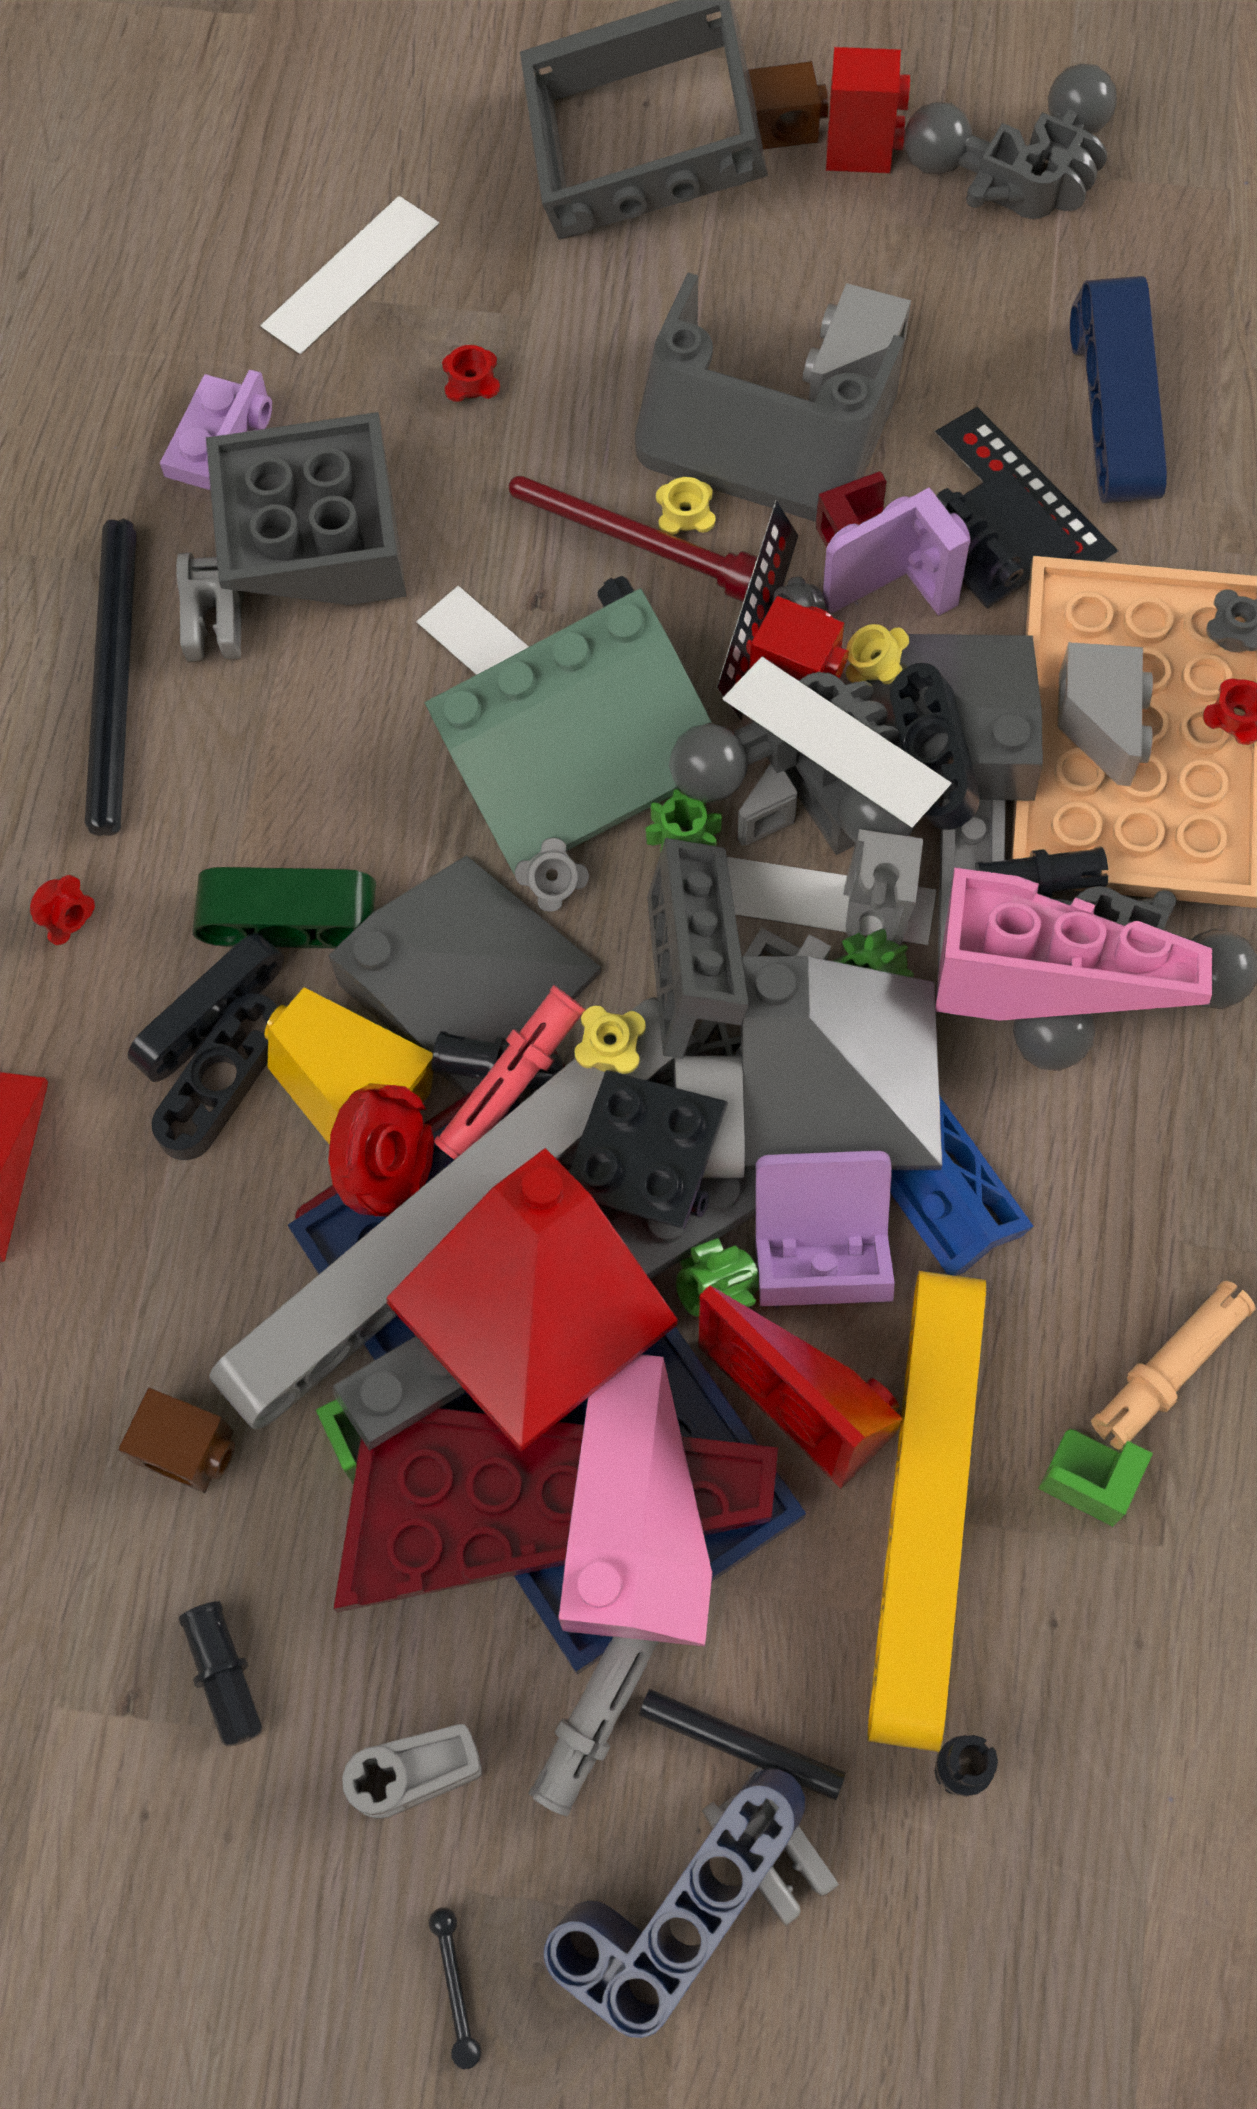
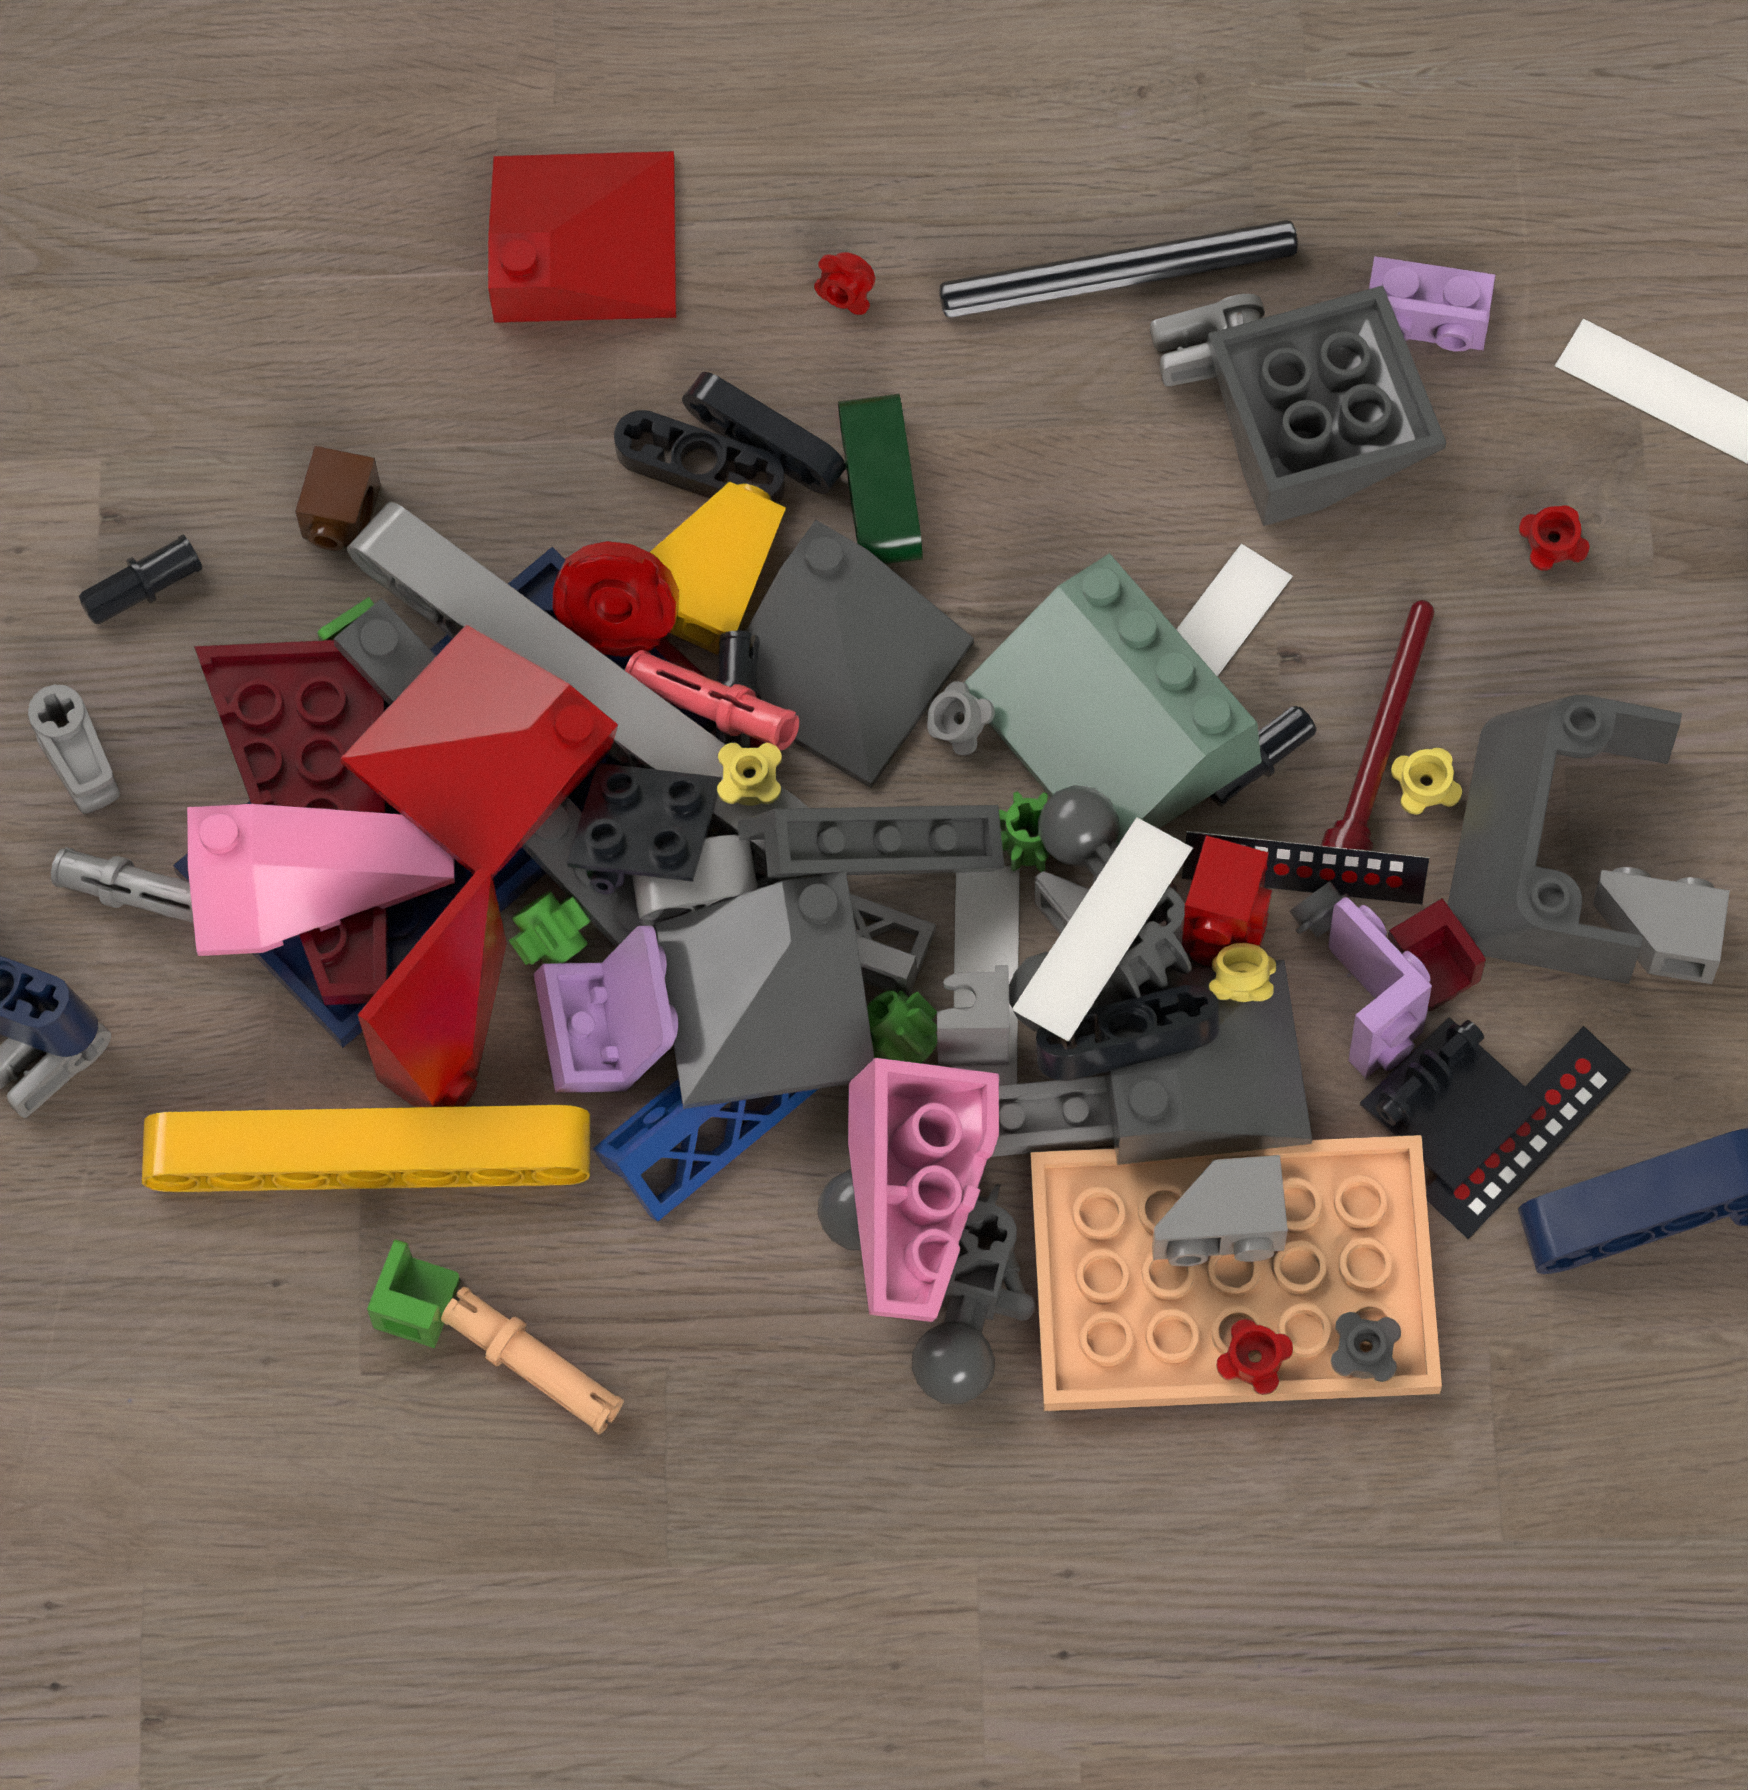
camera: 80 degrees right, 0 degrees up
(741, 1743) = (132, 1022): black bar -> none
(982, 1767) = (123, 1192): black pin -> none
(1055, 871) = (1023, 1174): black pin -> none

